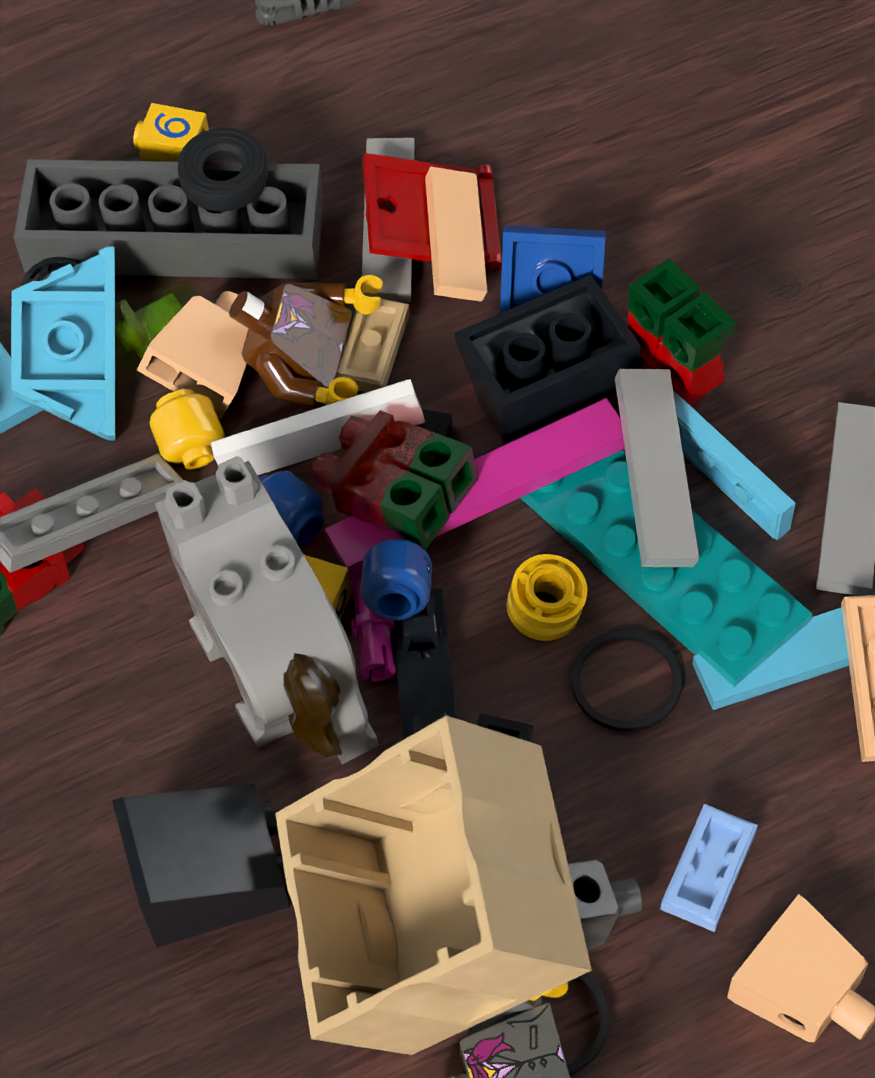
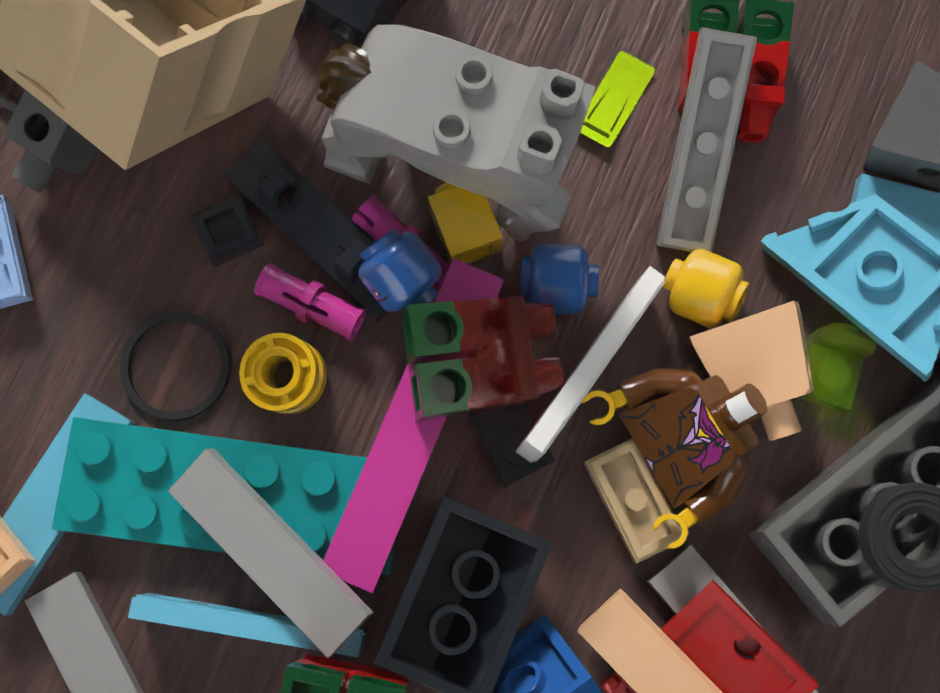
camera: 135 degrees right, 20 degrees up
(108, 619) = (616, 98): none -> clear neon green sticker
(481, 638) = (310, 301): none -> dark pink pin

